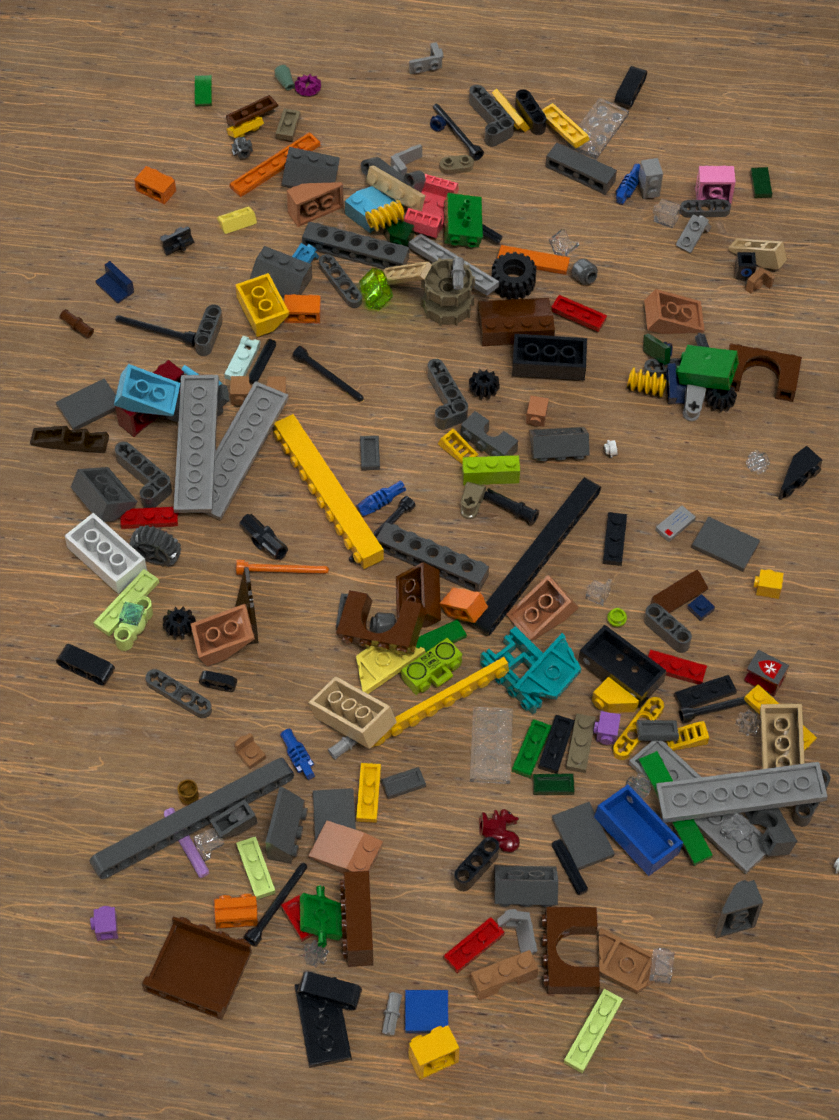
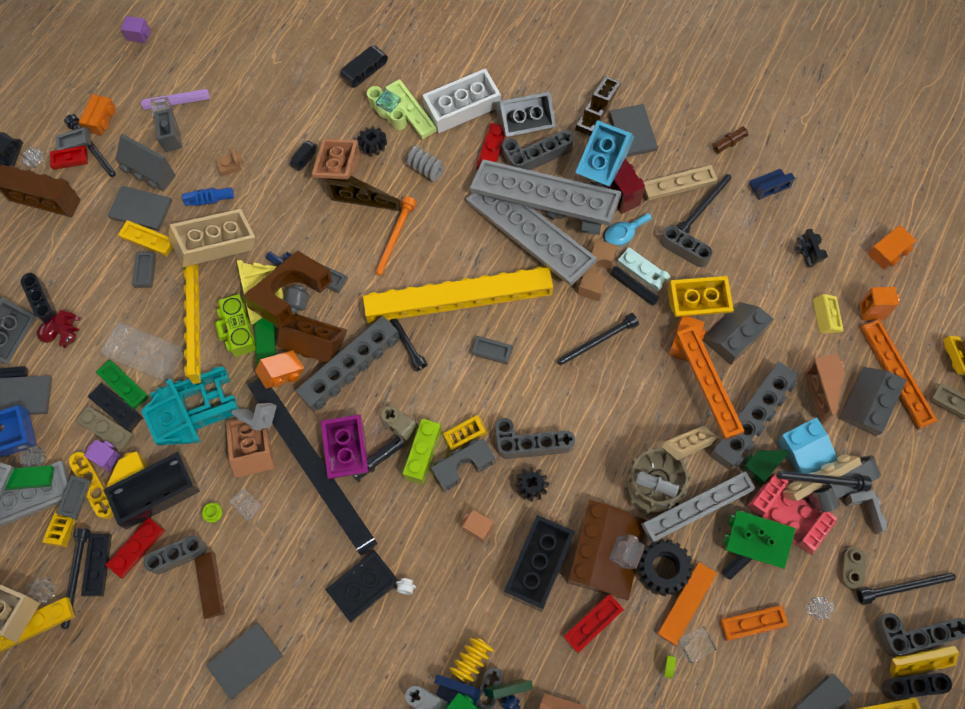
camera: 115 degrees right, 10 degrees up
(136, 347) = (679, 182): none -> tan plate
(156, 545) = (450, 136): dark grey gear -> none
(180, 691) = (306, 124): dark grey beam -> none
(185, 789) = (213, 108): pearl gold wheel -> none
(190, 565) = (424, 164): none -> light grey piece
(190, 818) = (185, 105): dark grey beam -> none
(198, 968) = (67, 78): reddish brown panel -> none
(220, 180) = (879, 303): none -> orange brick
(242, 147) = (926, 342): dark grey gear -> none
(255, 868) = (110, 138): yellowish green plate -> none
(263, 537) = (430, 228): black piece -> none
(278, 921) = (74, 138): none -> dark grey tile
(306, 253) = (757, 361): dark azure bracket -> none
(320, 916) = (55, 163): green plate -> none
(343, 275) = (710, 383): none -> orange plate
(343, 279) = (731, 380): dark grey beam -> none
(345, 848) = (100, 203): nougat slope -> none
(346, 659) = (274, 259): none -> dark blue arm
(375, 288) = (685, 415): clear neon green brick -> none
(380, 498) = (433, 340): blue hinge -> none
(385, 215) = (776, 448): yellow piece -> none
(391, 162) = (860, 483): none -> black piece
(435, 125) = (922, 567): dark blue plate -> none
(499, 175) = (820, 608): none -> clear gear
(513, 298) = (627, 551): none -> clear brick
(513, 526) = (344, 446): none -> magenta slope
(522, 604) = (260, 418): none -> light grey bracket
(528, 216) = (754, 623): none -> orange tile
(553, 784) = (79, 390): dark green tile -> none
(559, 443) = (432, 534): dark grey slope -> none
(584, 271) = (648, 653): dark grey head -> none
(591, 255) = (670, 666): none -> lime tile
(615, 539) = (300, 547): black plate -> none
(625, 481) = (362, 586): none -> black tile
(675, 523) = (290, 617): light grey tile -> none
(701, 607) = (186, 601): dark blue plate -> none
(766, 672) = (78, 631): piece -> none
(769, 583) = (175, 683): yellow brick -> none

